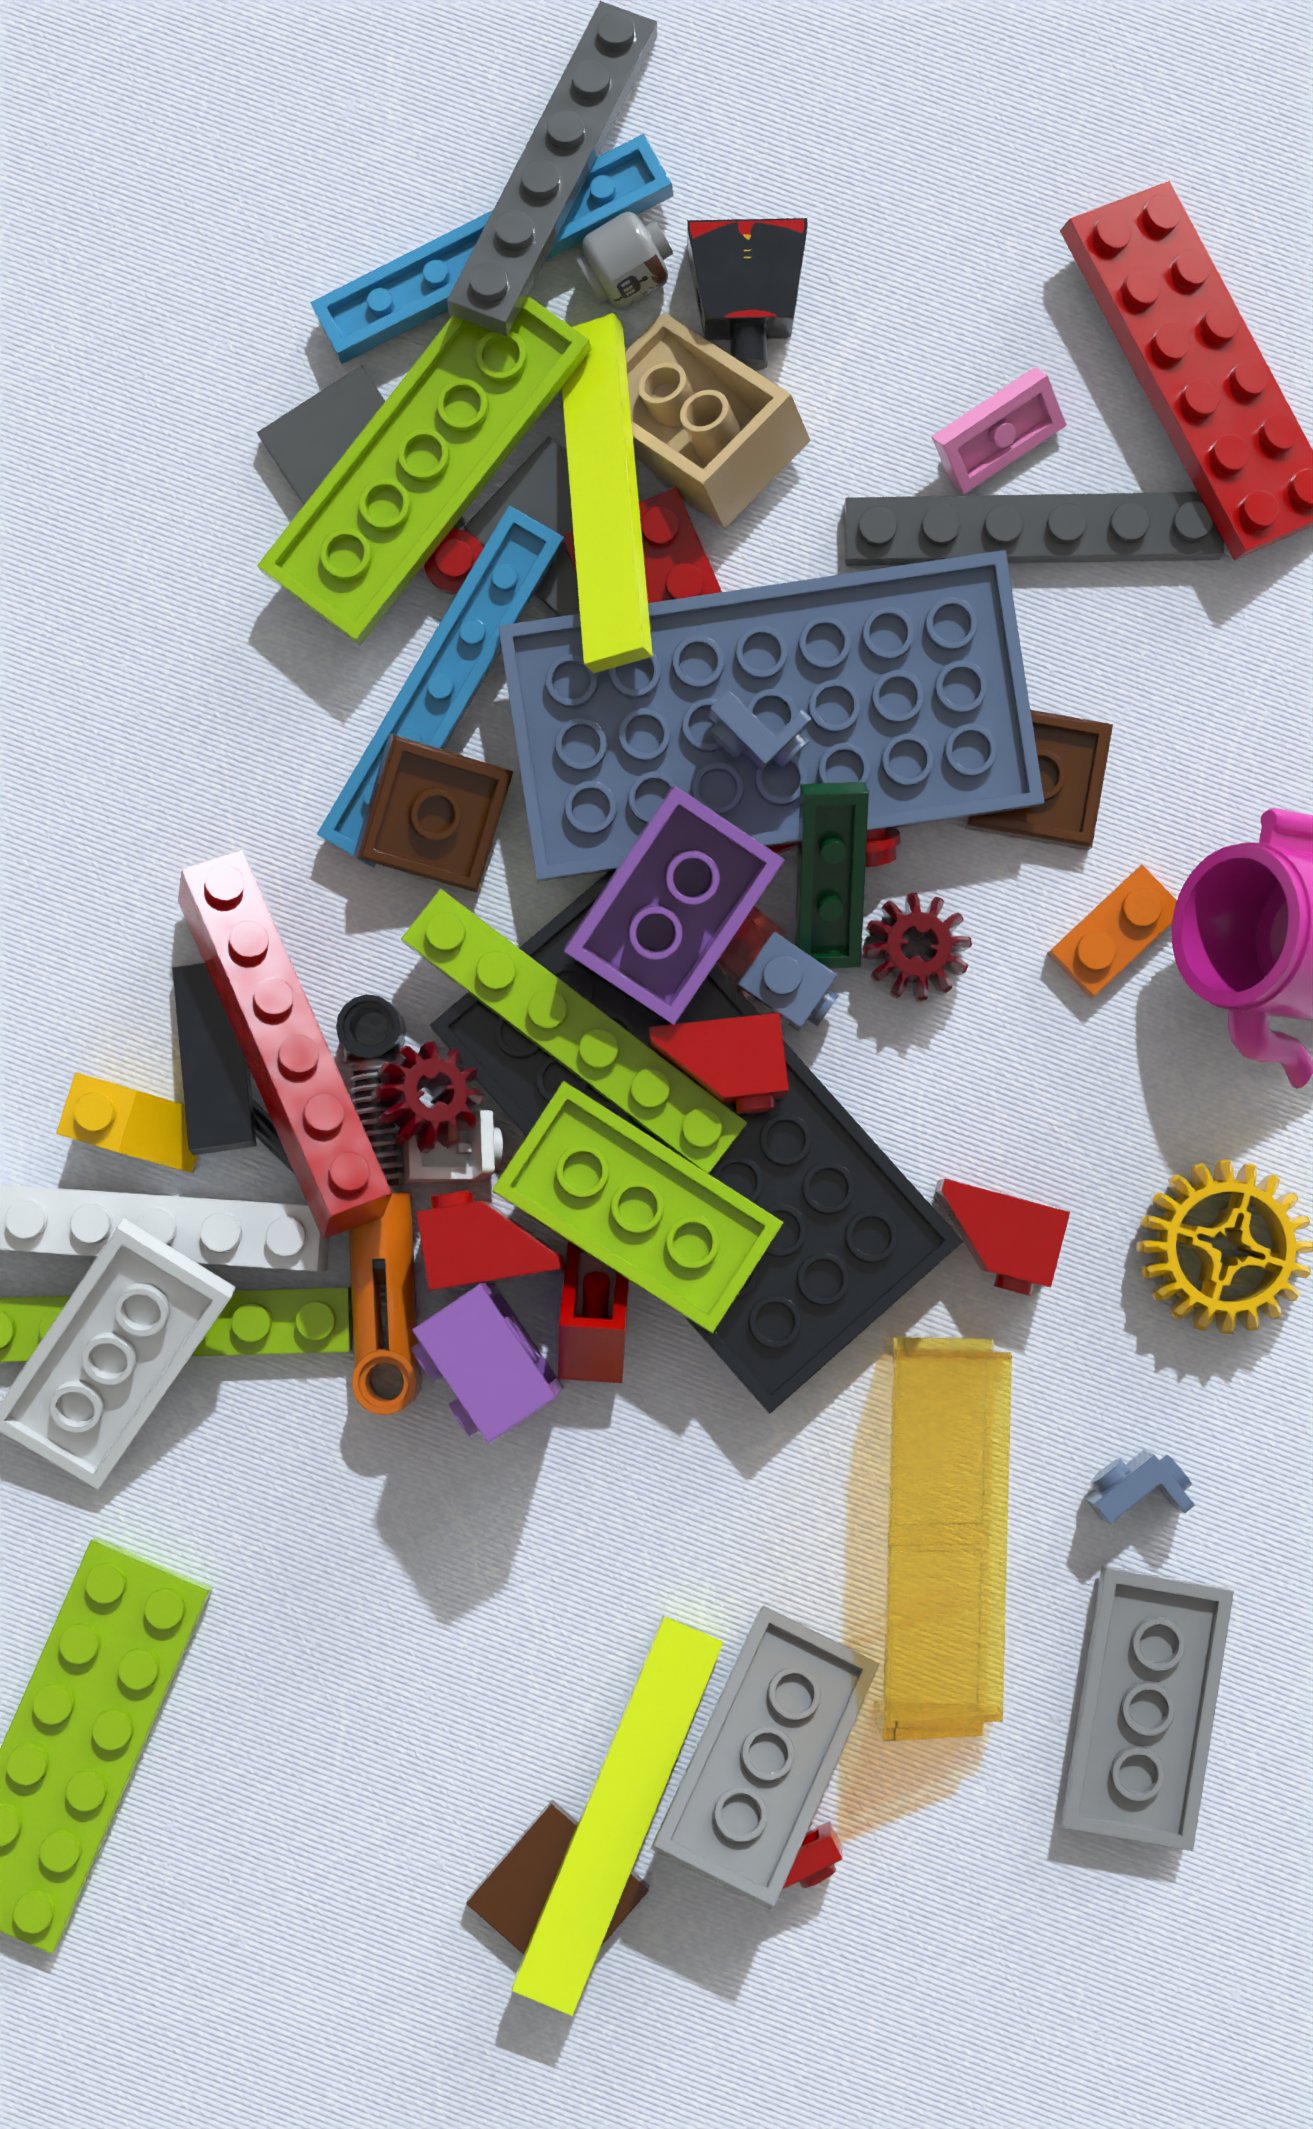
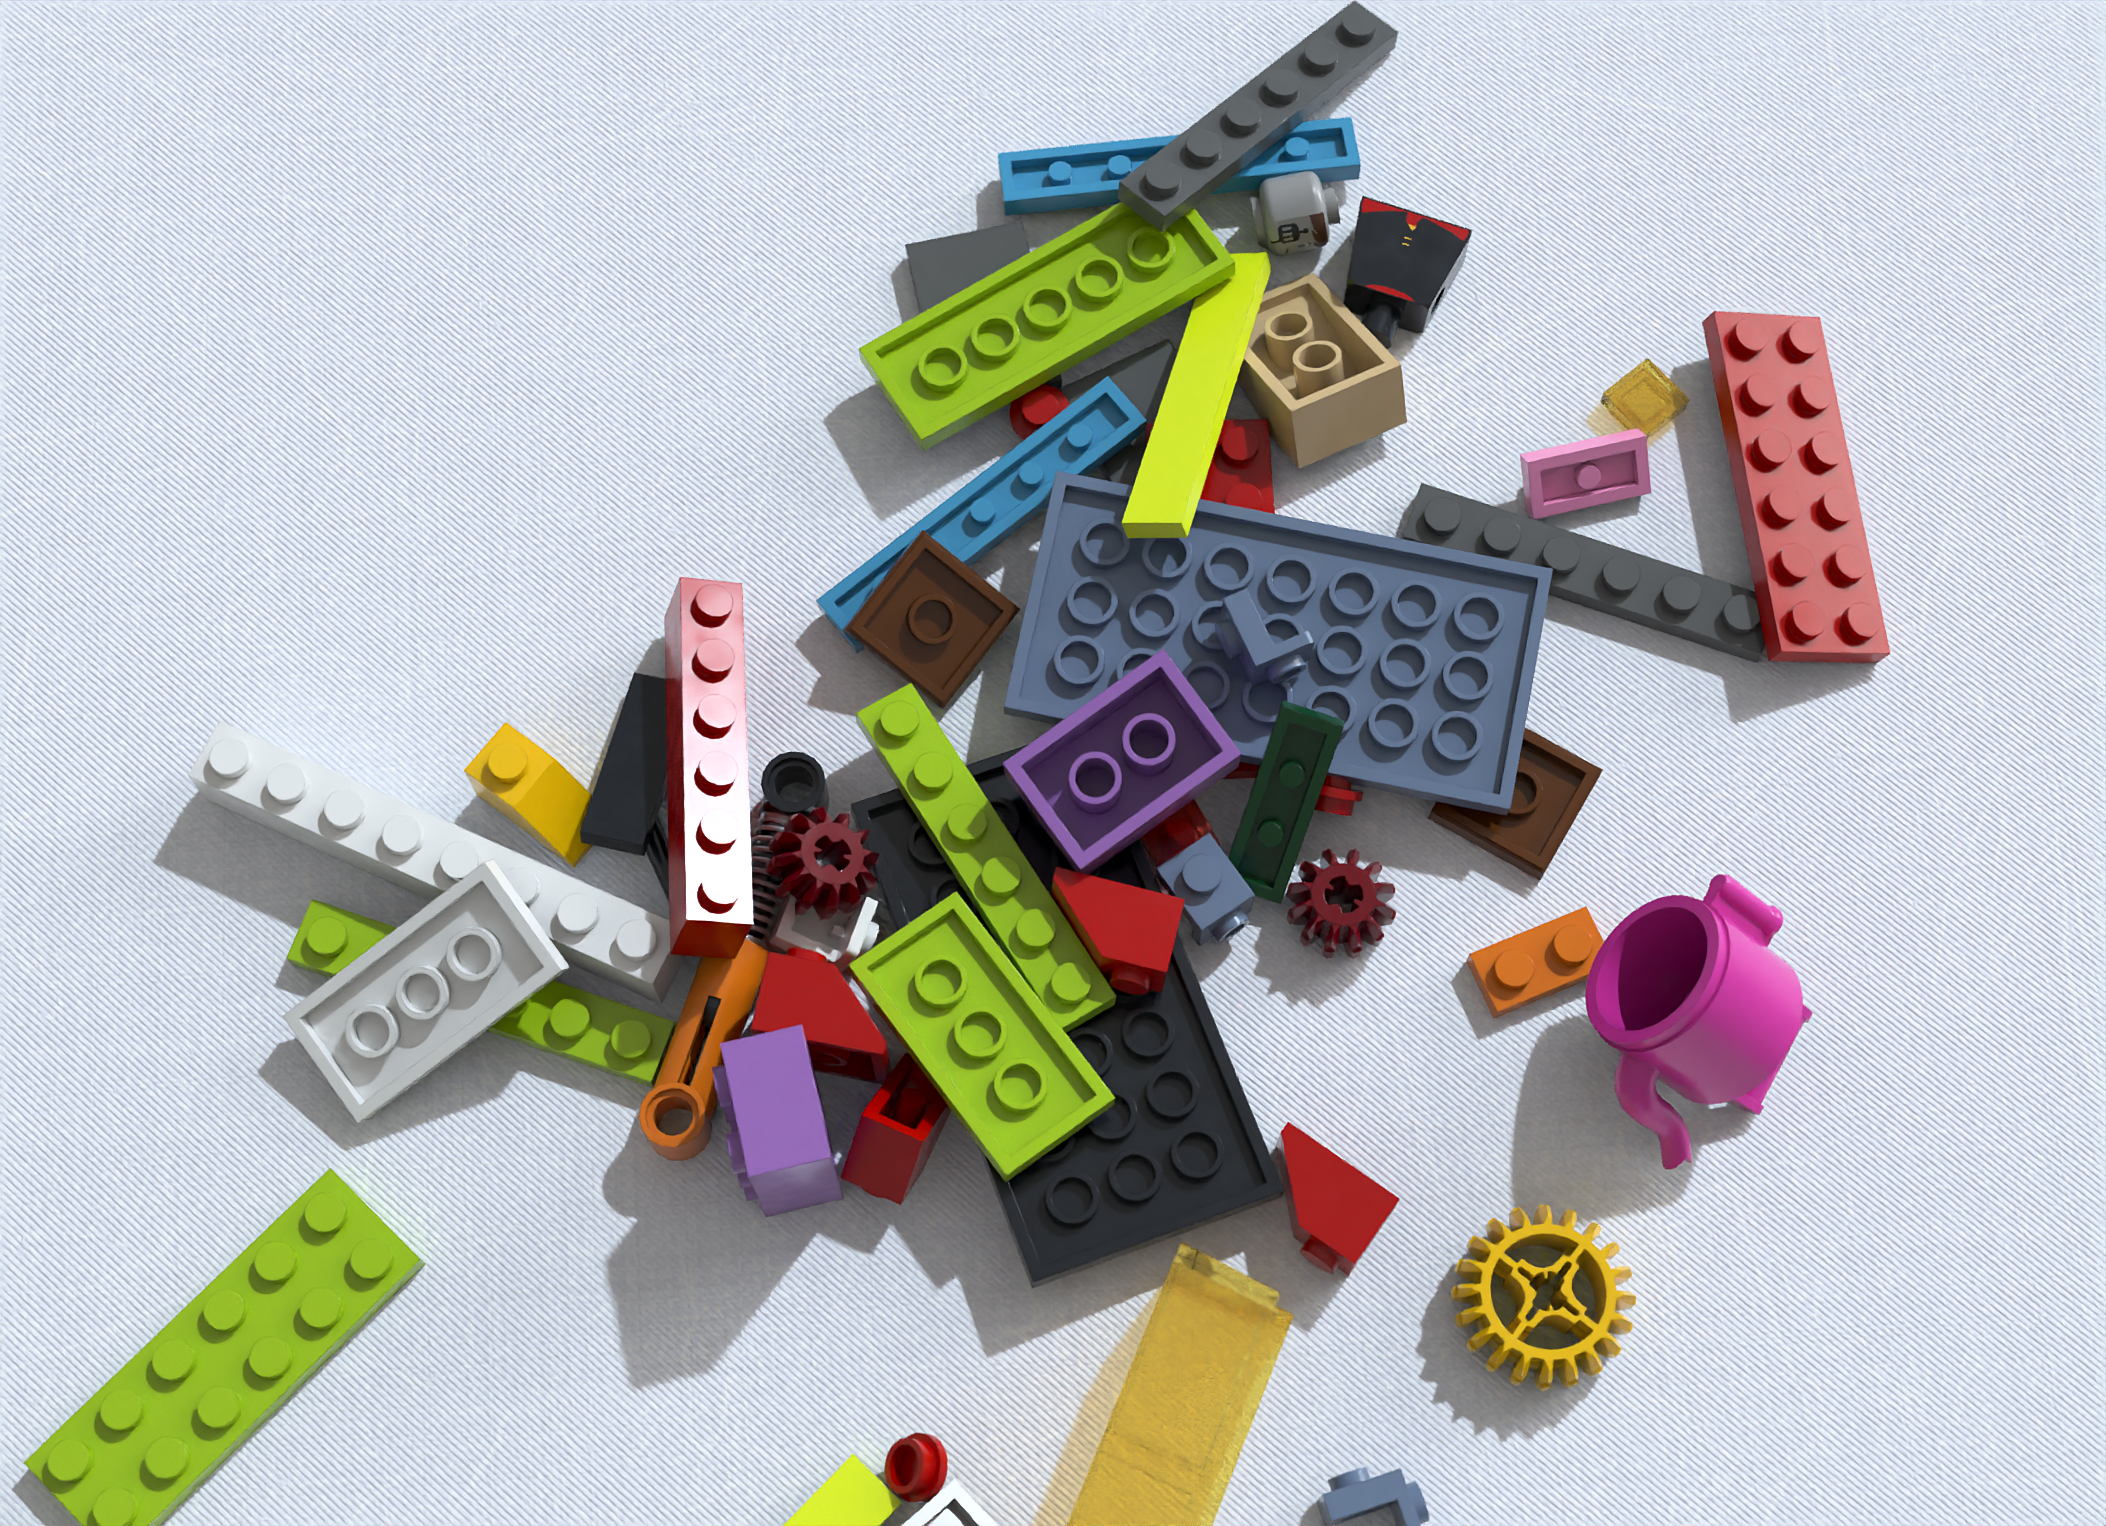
camera: 15 degrees right, 15 degrees down
(725, 1607) = (916, 1467): none -> red plate
(1028, 330) = (1644, 399): none -> clear yellow tile

